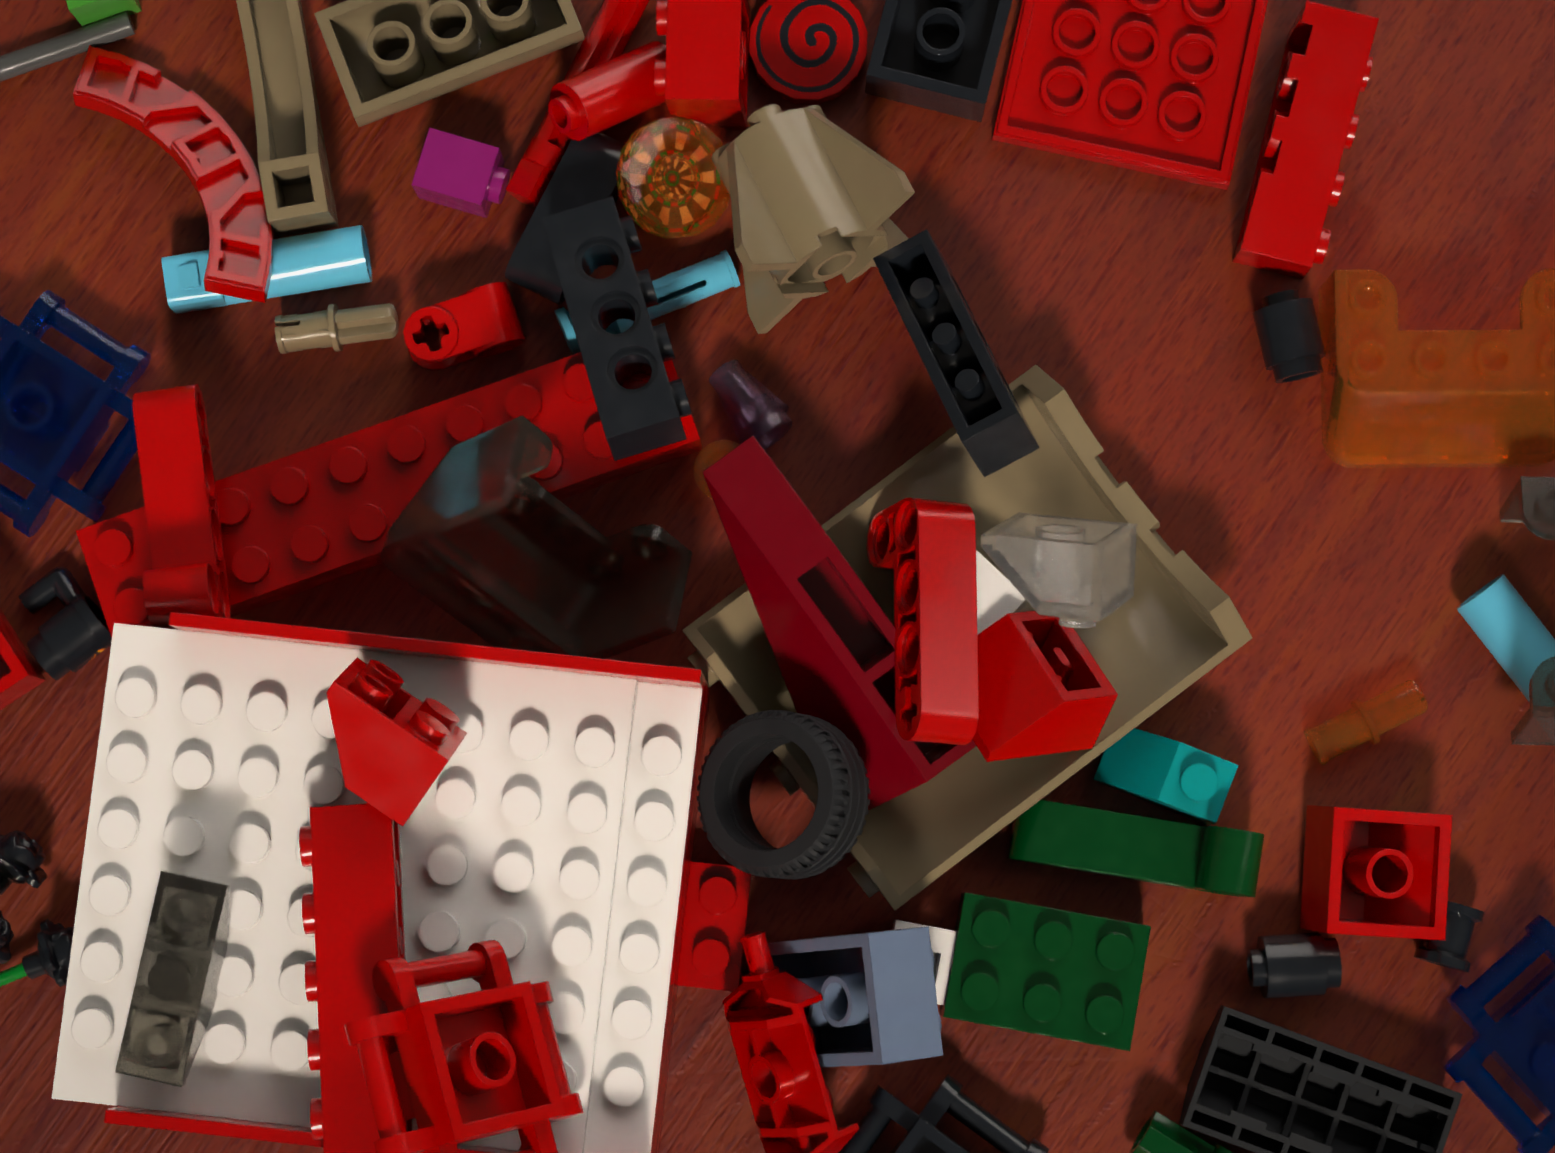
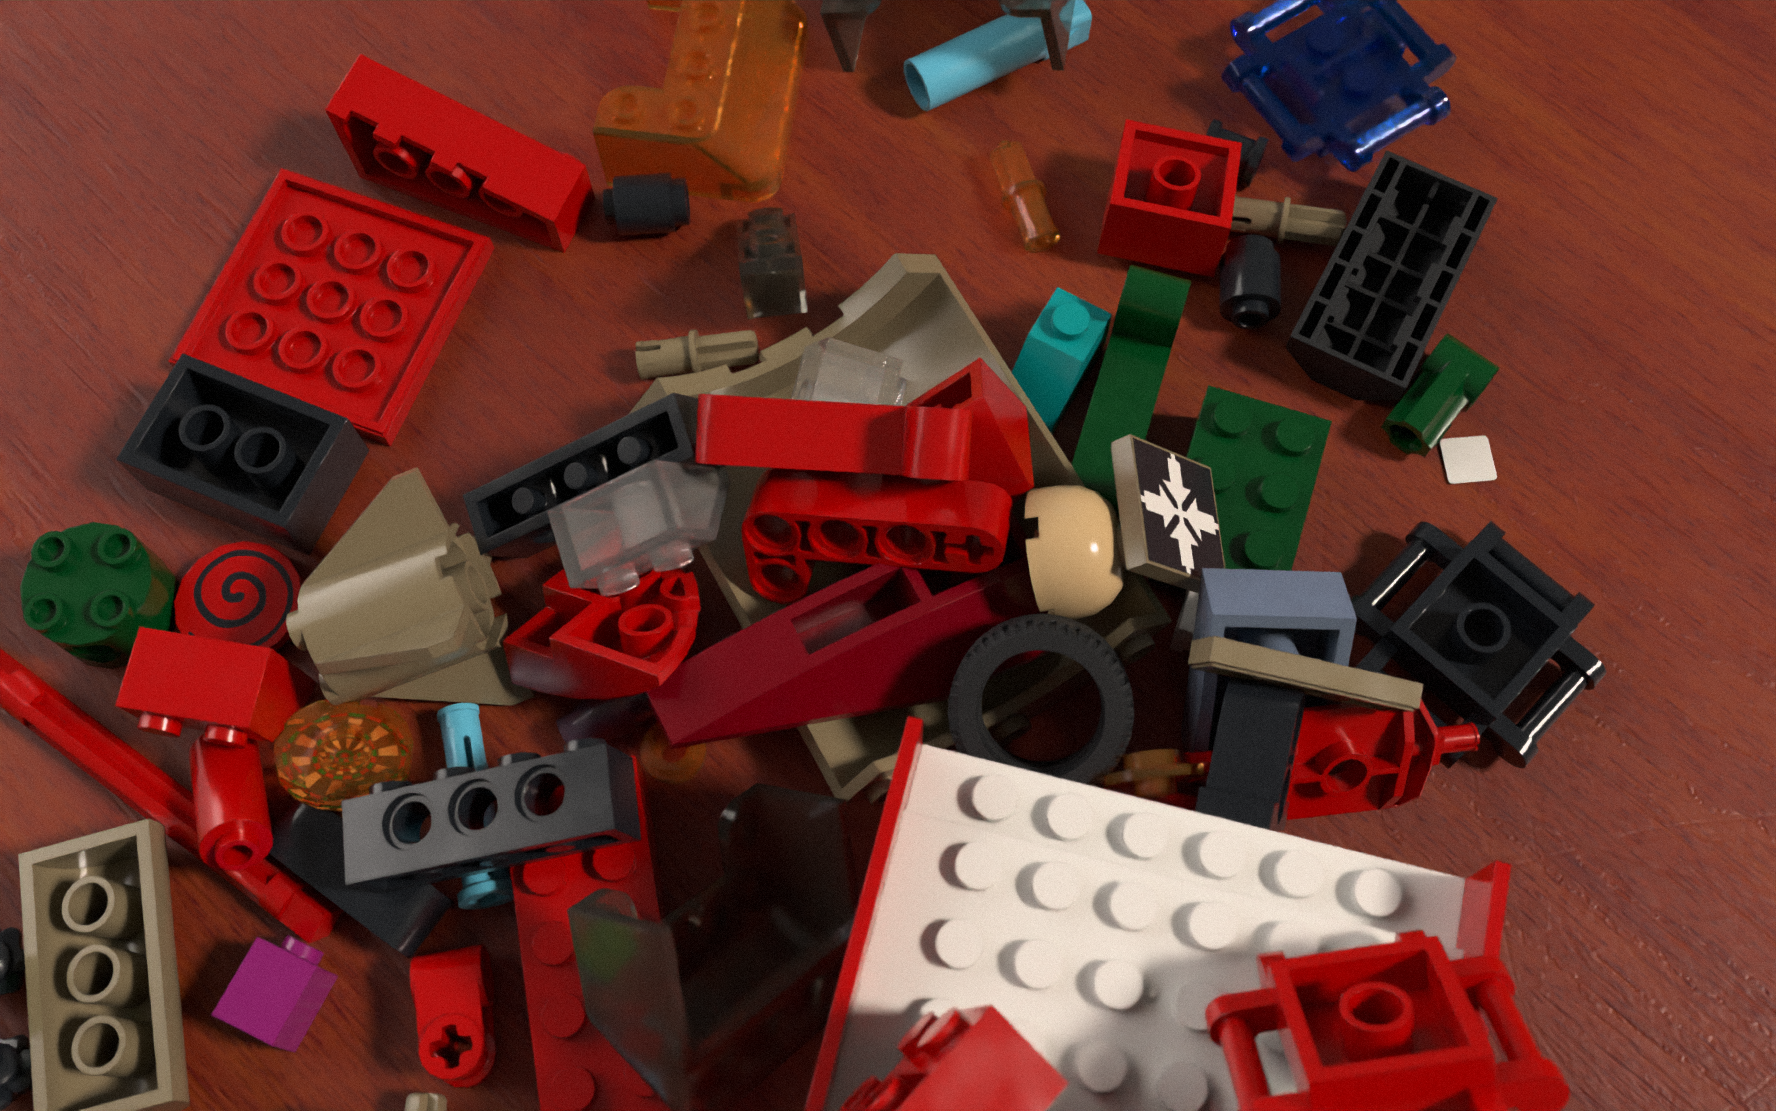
camera: 85 degrees left, 15 degrees down
(733, 901) = (1153, 773): none -> clear orange piece
(743, 983) = (1253, 754): none -> black tile
(825, 1022) = (1305, 674): none -> dark tan tile
(827, 394) = (606, 644): none -> red brick
(899, 406) = (639, 524): none -> clear slope
(935, 810) = (1075, 552): none -> tan cylinder
(980, 891) = (1166, 513): none -> tile
(999, 570) = (834, 436): none -> red beam
(1129, 417) = (695, 353): none -> dark tan axle
(1238, 473) = (771, 264): none -> clear smoke slope
(1376, 996) = (1288, 221): none -> dark tan axle

